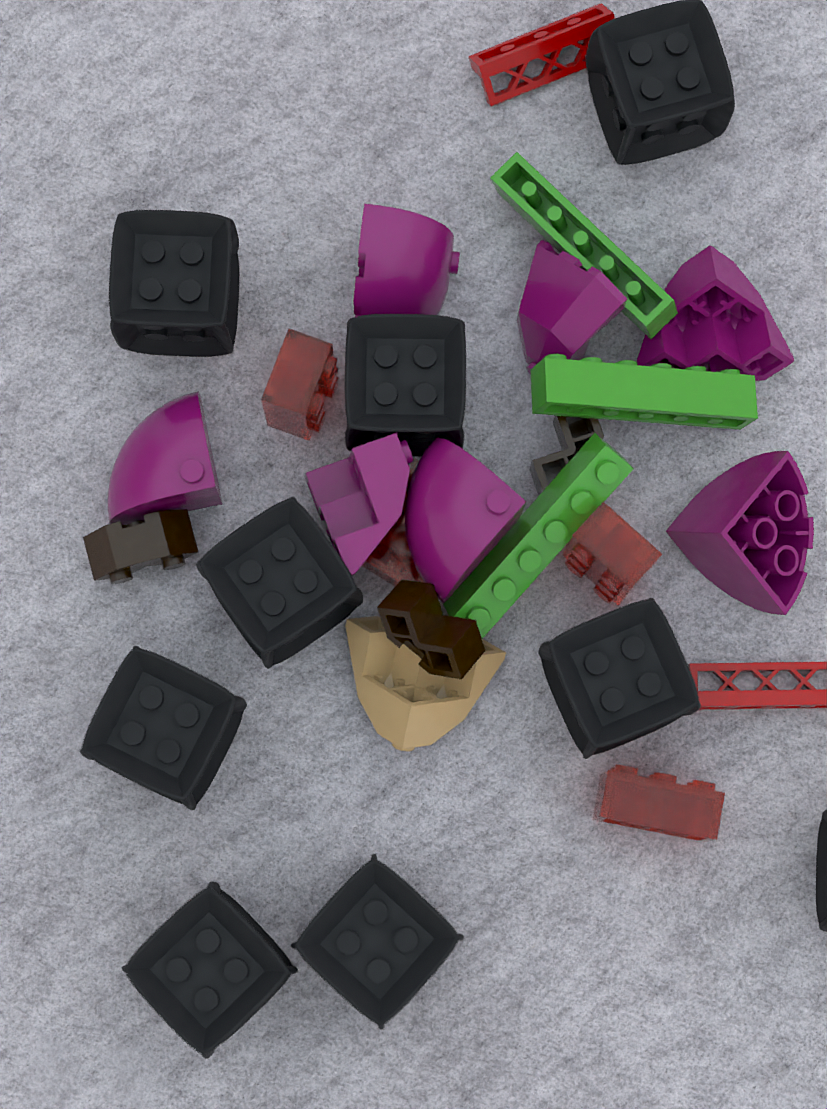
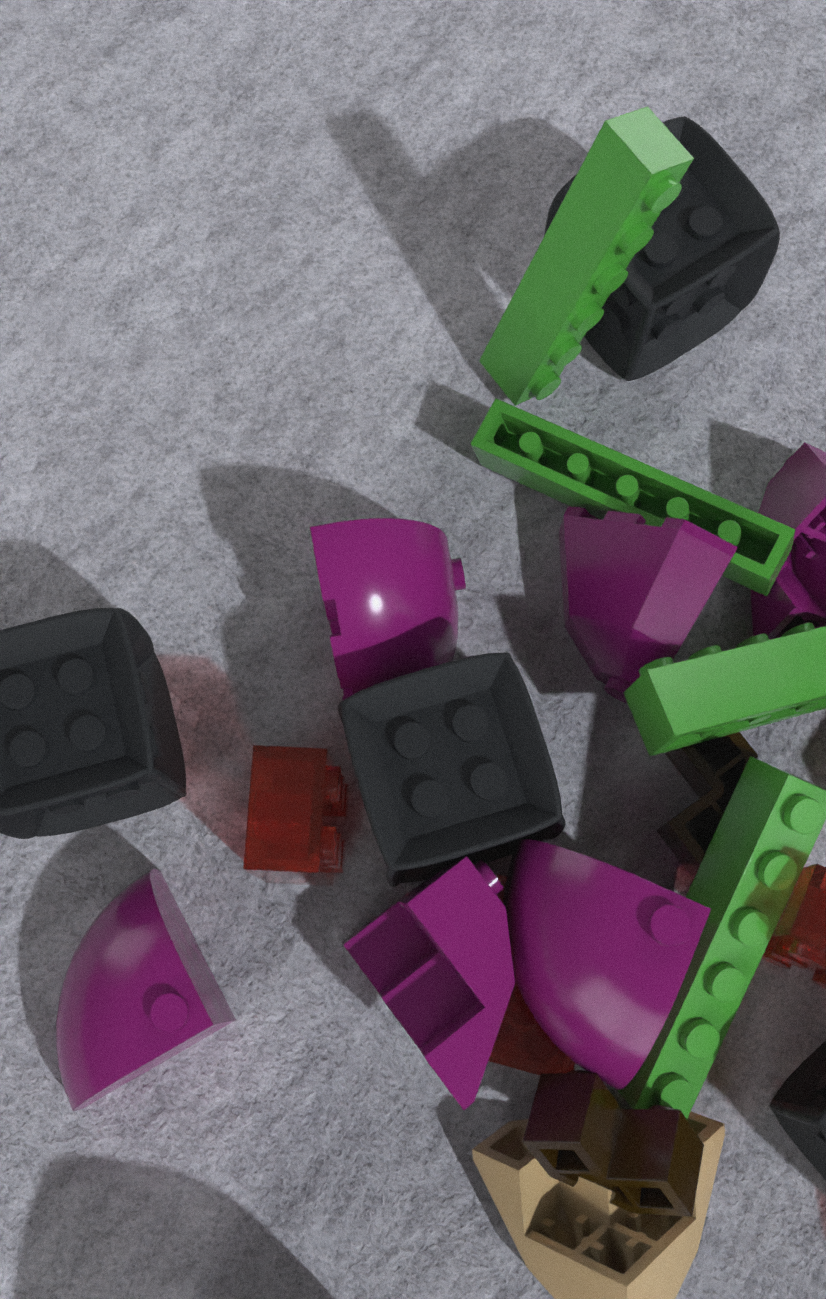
camera: 10 degrees left, 5 degrees down
(159, 539) = (128, 1132): dark brown brick -> none
(280, 581) = (354, 1148): black piece -> none
(535, 45) = (469, 261): red fence -> none
(593, 82) = (585, 252): none -> bright green brick

